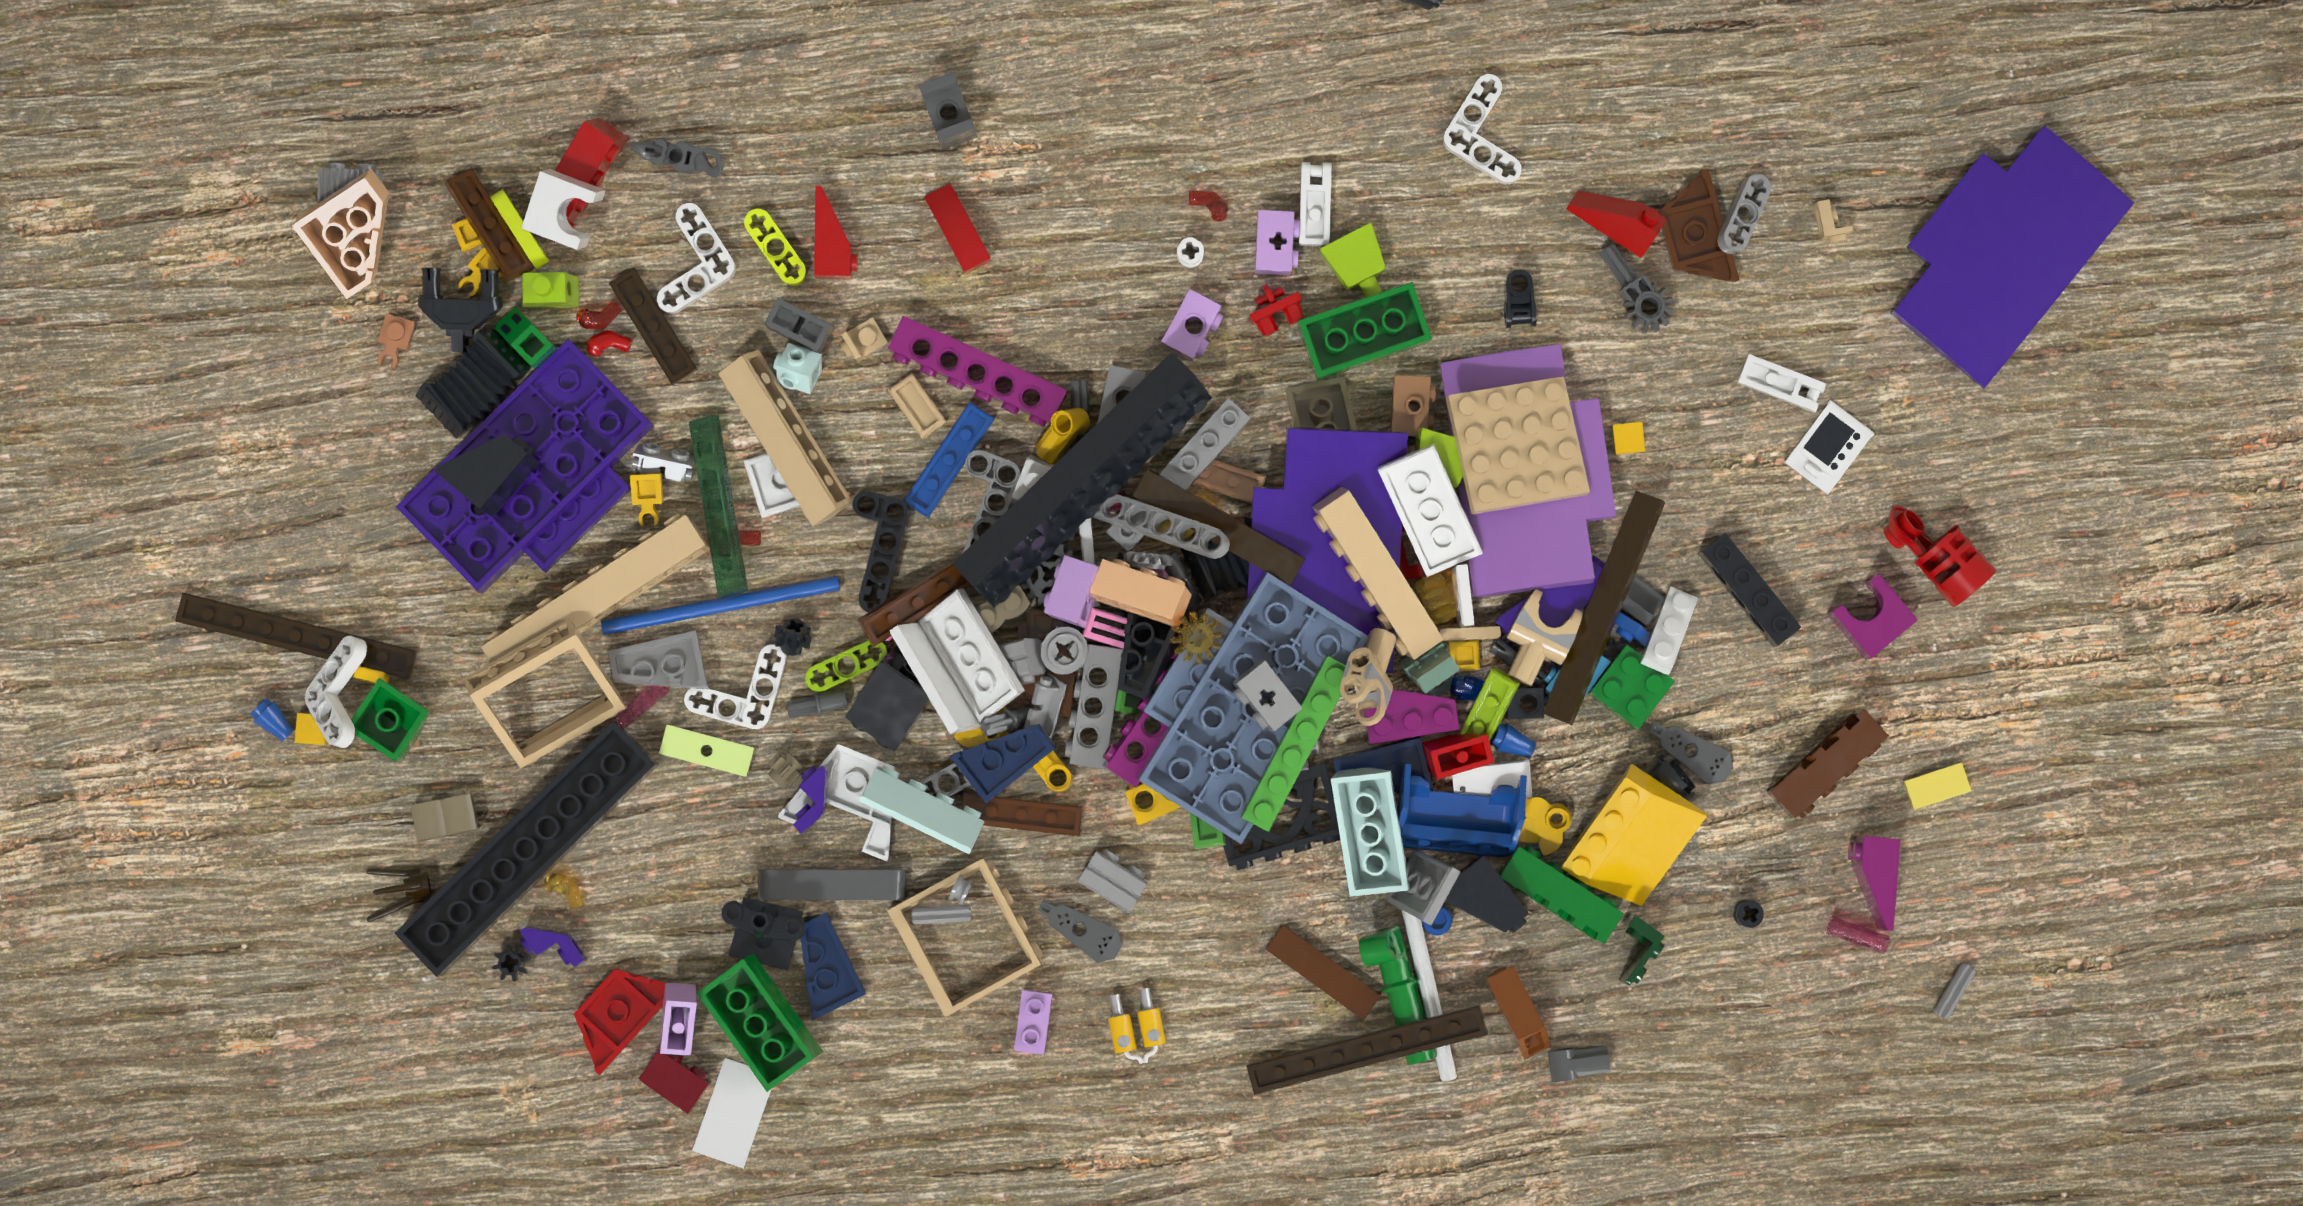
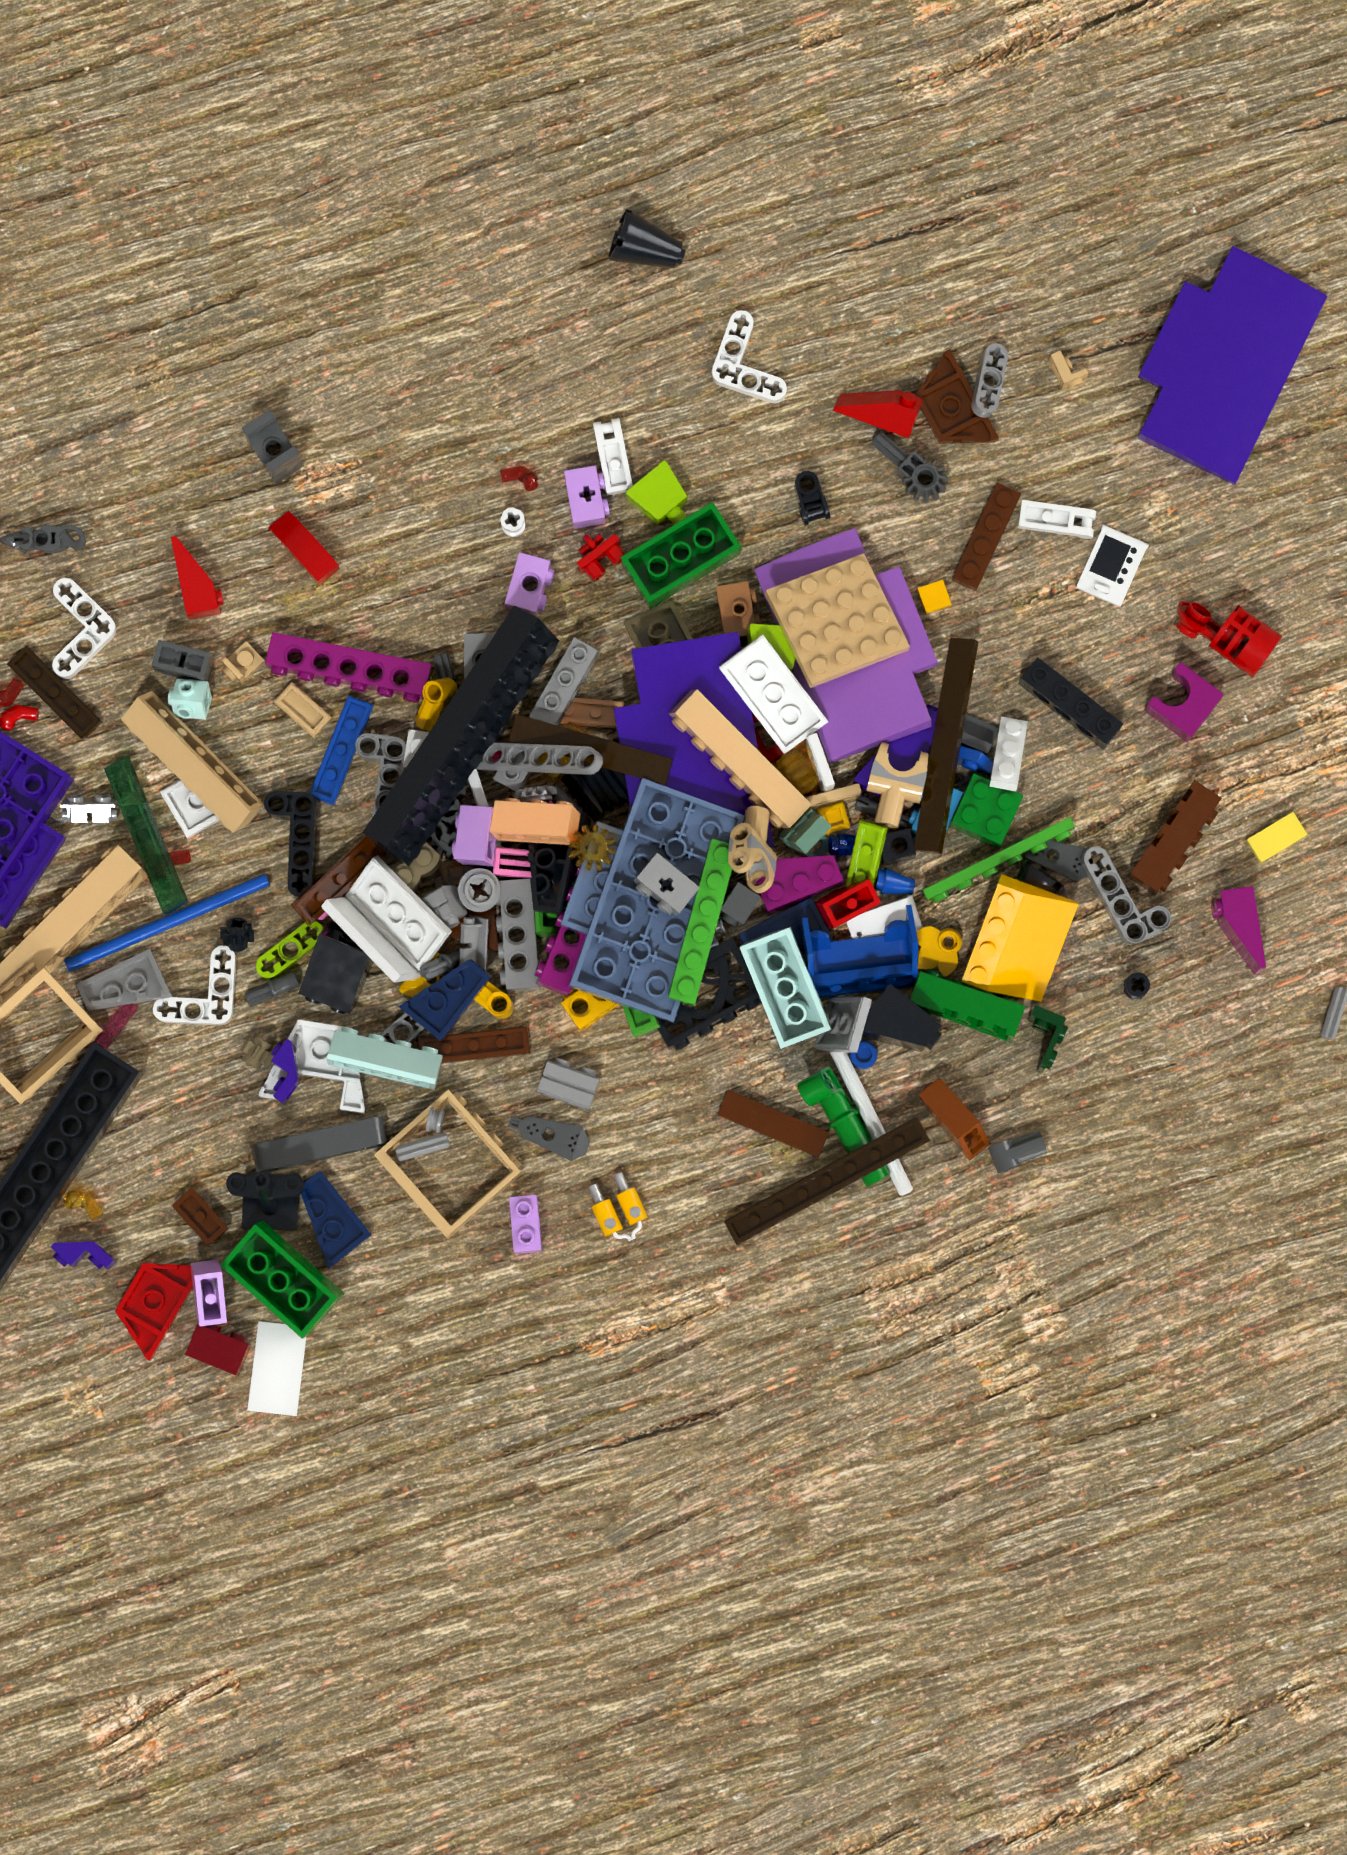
camera: 10 degrees left, 5 degrees down
(517, 968) = (41, 1276): black gear -> none
(647, 491) = (79, 837): yellow plate -> none
(687, 932) = (200, 1217): none -> reddish brown plate
(689, 745) = (165, 1052): yellowish green tile -> none
(756, 233) = (127, 592): neon yellow beam -> none
(1341, 730) = (739, 905): none -> dark grey brick
(1645, 742) = (1010, 855): none -> bright green plate
(1700, 384) = (986, 536): none -> reddish brown plate
(1753, 808) = (1119, 892): none -> light grey beam
(1858, 934) = (1238, 983): clear pink pin -> none

